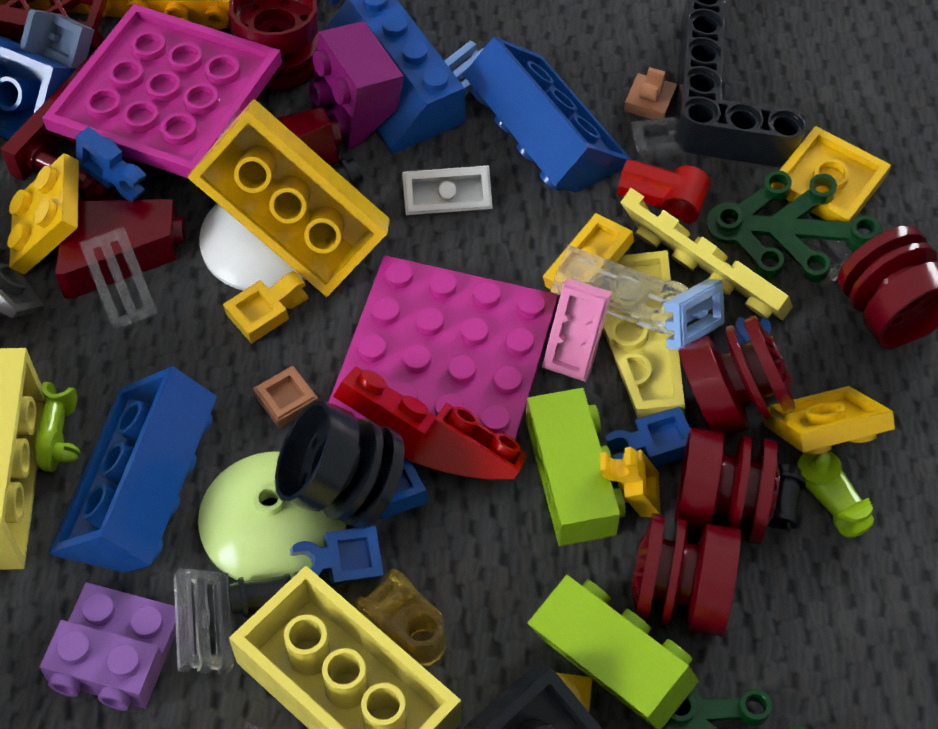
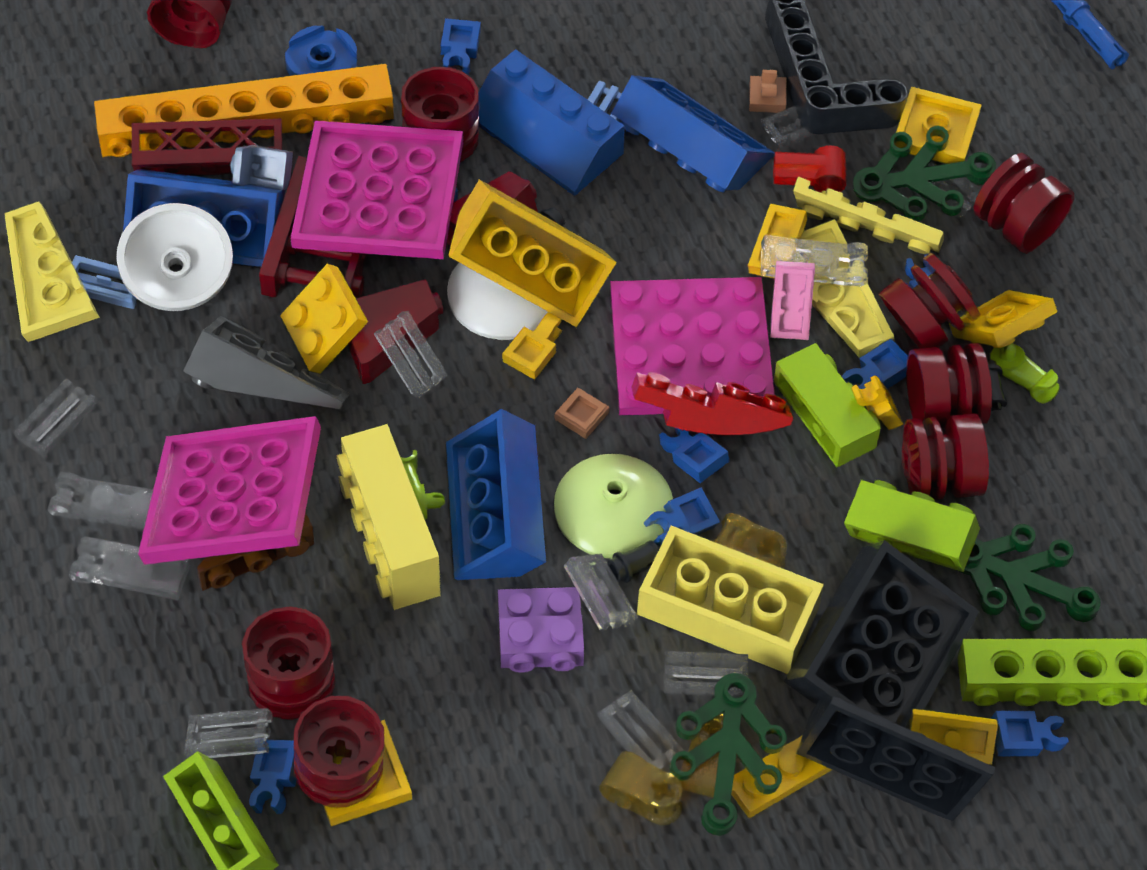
camera: 20 degrees left, 0 degrees up
(103, 161) = (362, 263): blue plate -> none
(339, 465) = (664, 446): black wheel -> none
(354, 81) = (528, 141): magenta slope -> none
(447, 190) = (635, 215): white slope -> none
(692, 305) = (877, 268): light blue tile -> none

